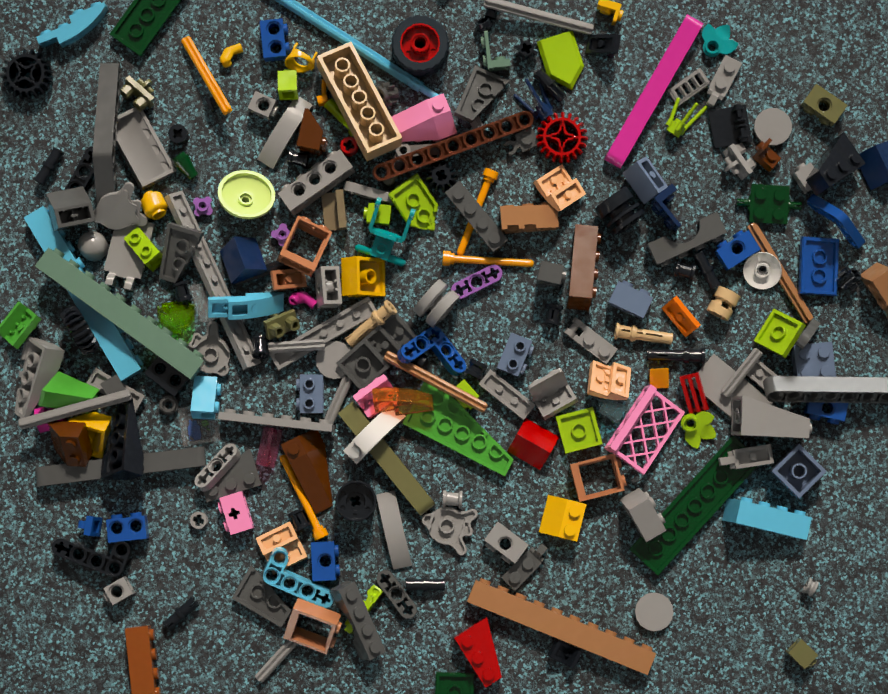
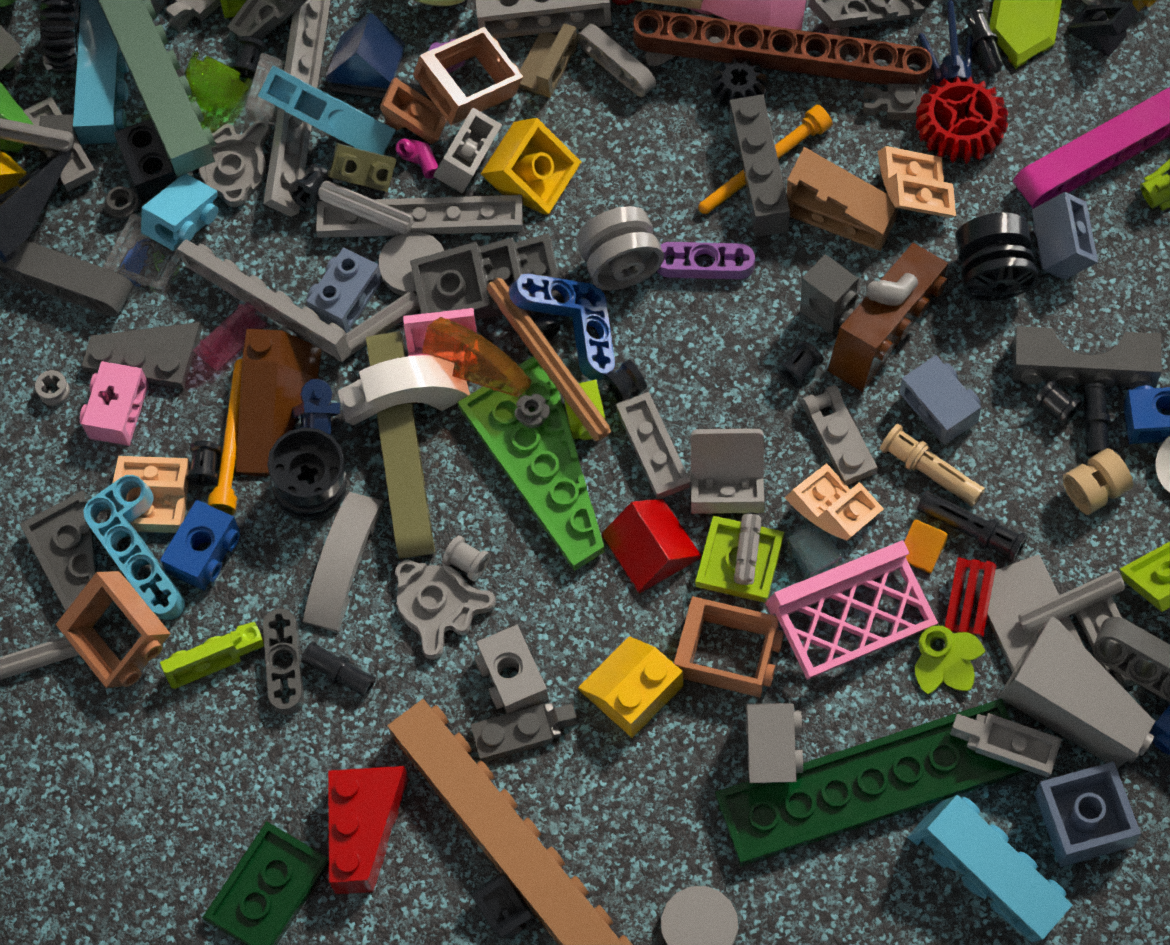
camera: 30 degrees right, 20 degrees down
(217, 475) = (131, 322): light grey beam -> none
(340, 467) = (314, 407): none -> dark blue hips
(365, 634) = (188, 684): dark grey arch -> none
(377, 318) = (515, 227): tan pin -> none
(383, 217) = (609, 92): lime brick -> none
(384, 239) = (595, 120): teal piece -> none
(415, 195) = (675, 102): lime tile -> none
(447, 409) = (535, 418): none -> dark grey plate
(451, 258) = (682, 206): light orange piece -> none
(515, 354) = (701, 391): sand blue brick -> none
(582, 426) = (747, 549): none -> light grey axle
(583, 263) = (892, 292): none -> light grey arm
(660, 209) = (1077, 275): dark blue bracket -> none
(681, 316) = (1013, 468): orange plate -> none

